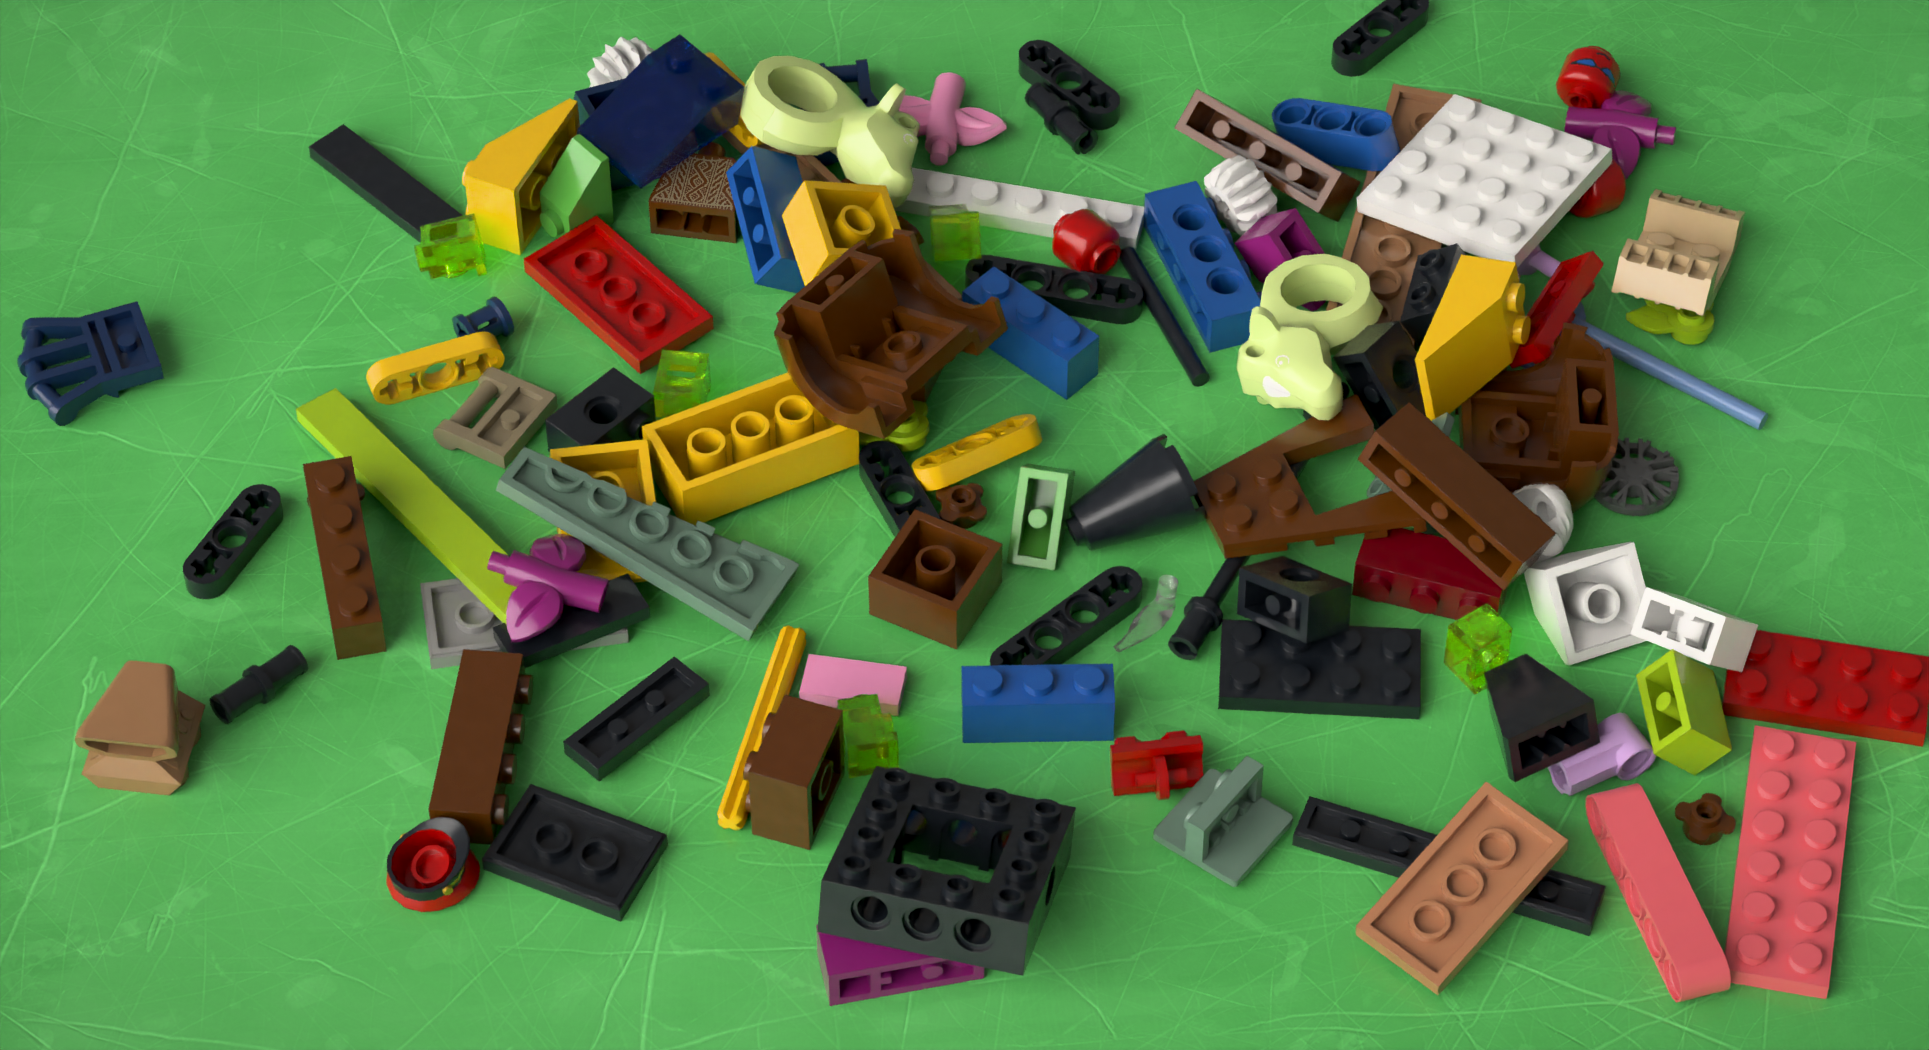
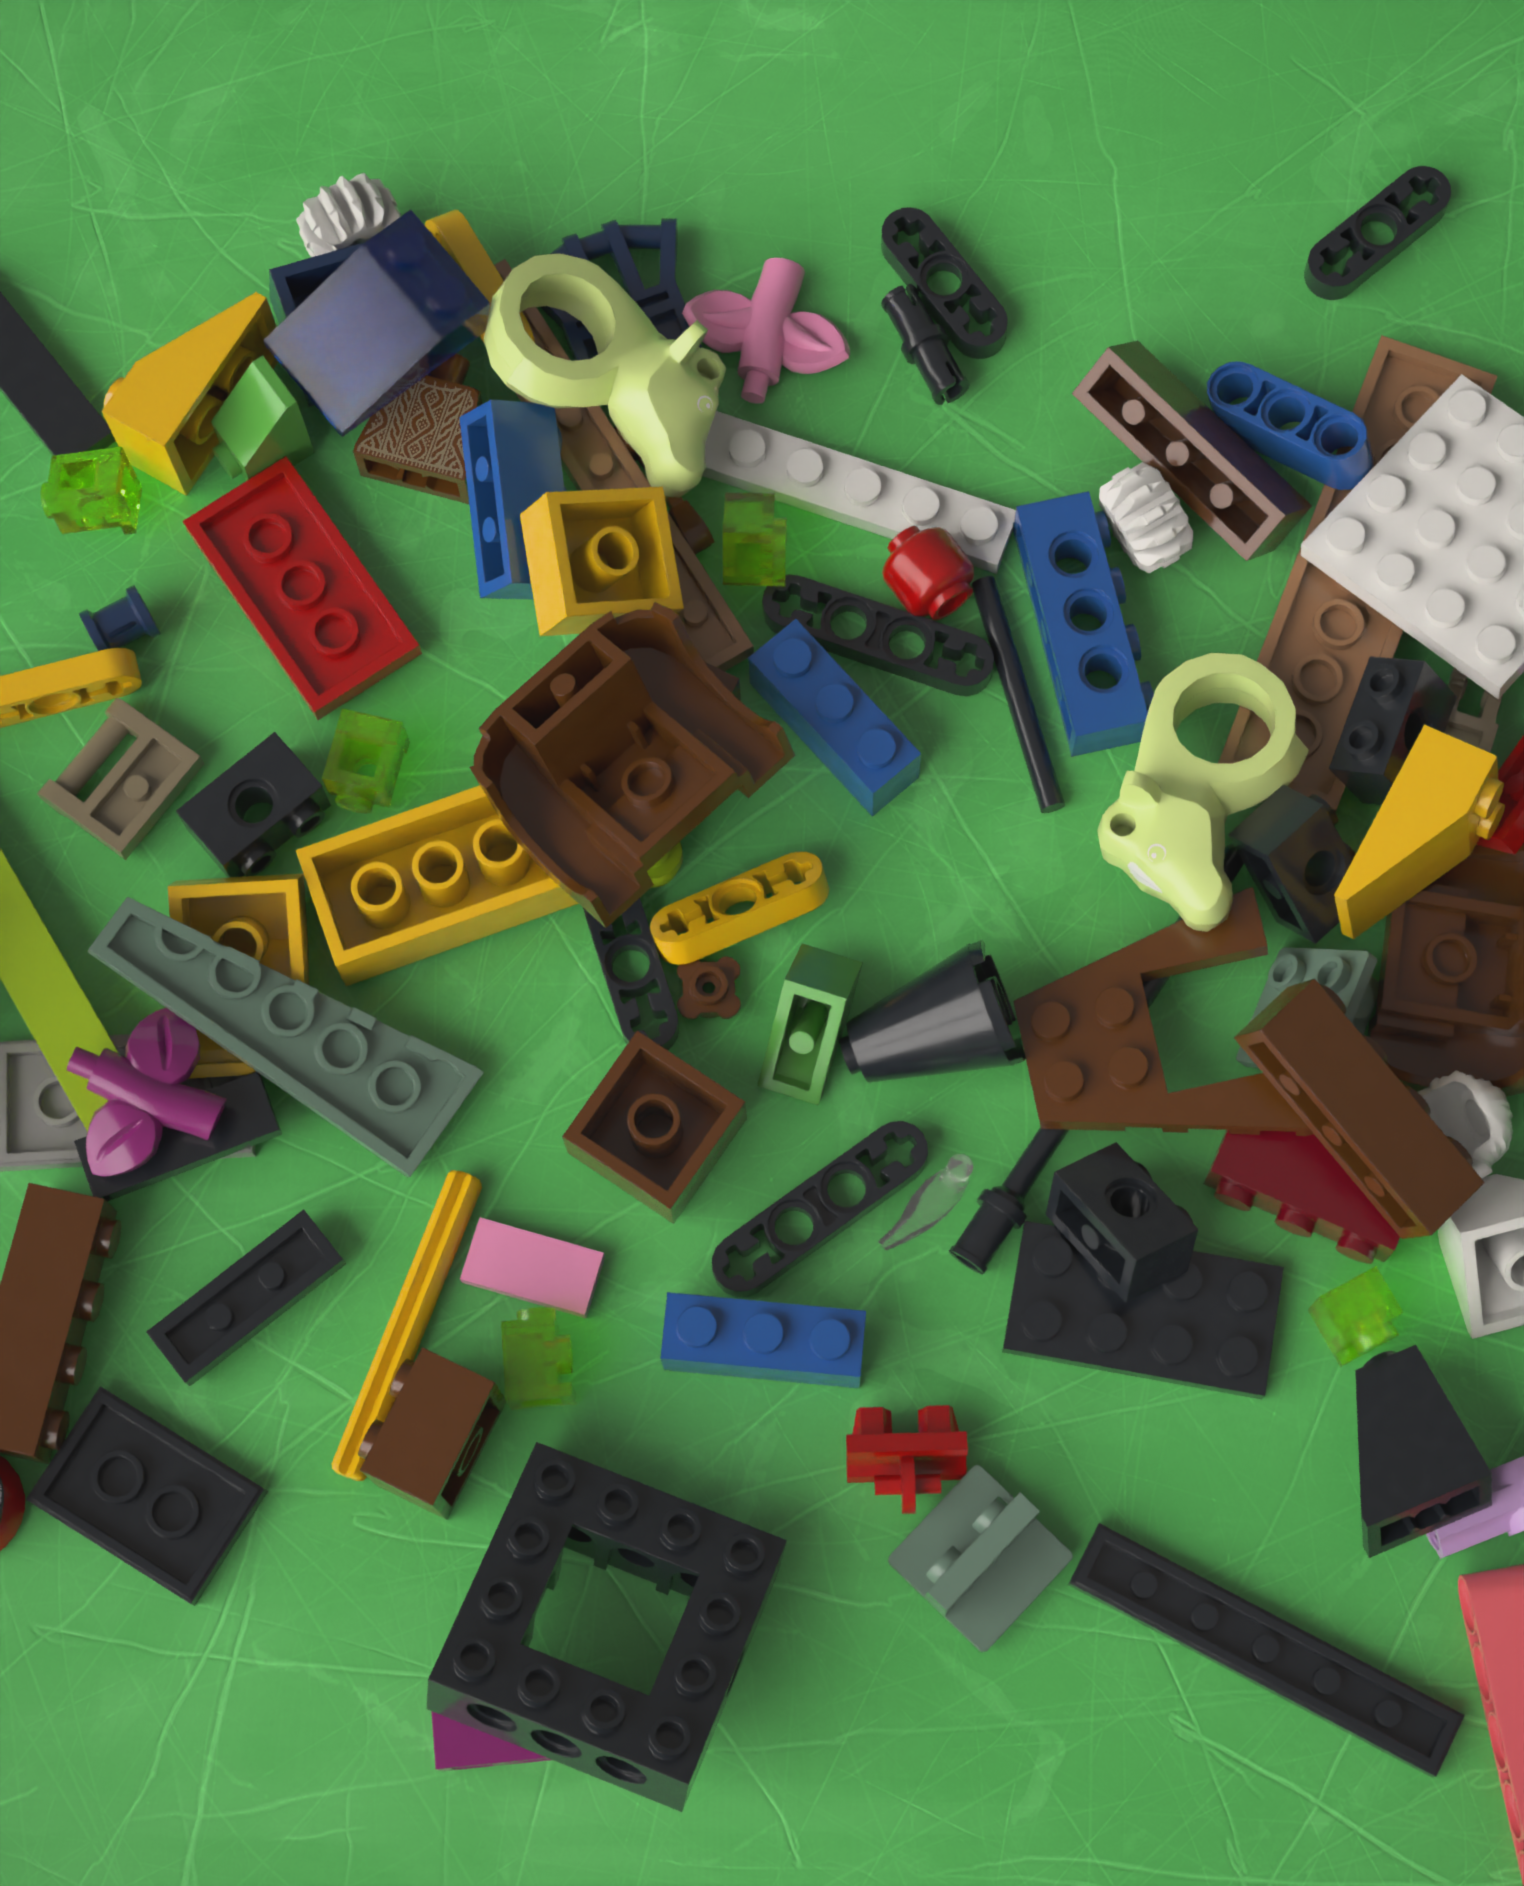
camera: 10 degrees right, 25 degrees up
(1275, 241) = (1190, 613): magenta slope -> none
(1461, 888) = (1275, 1713): nougat plate -> none

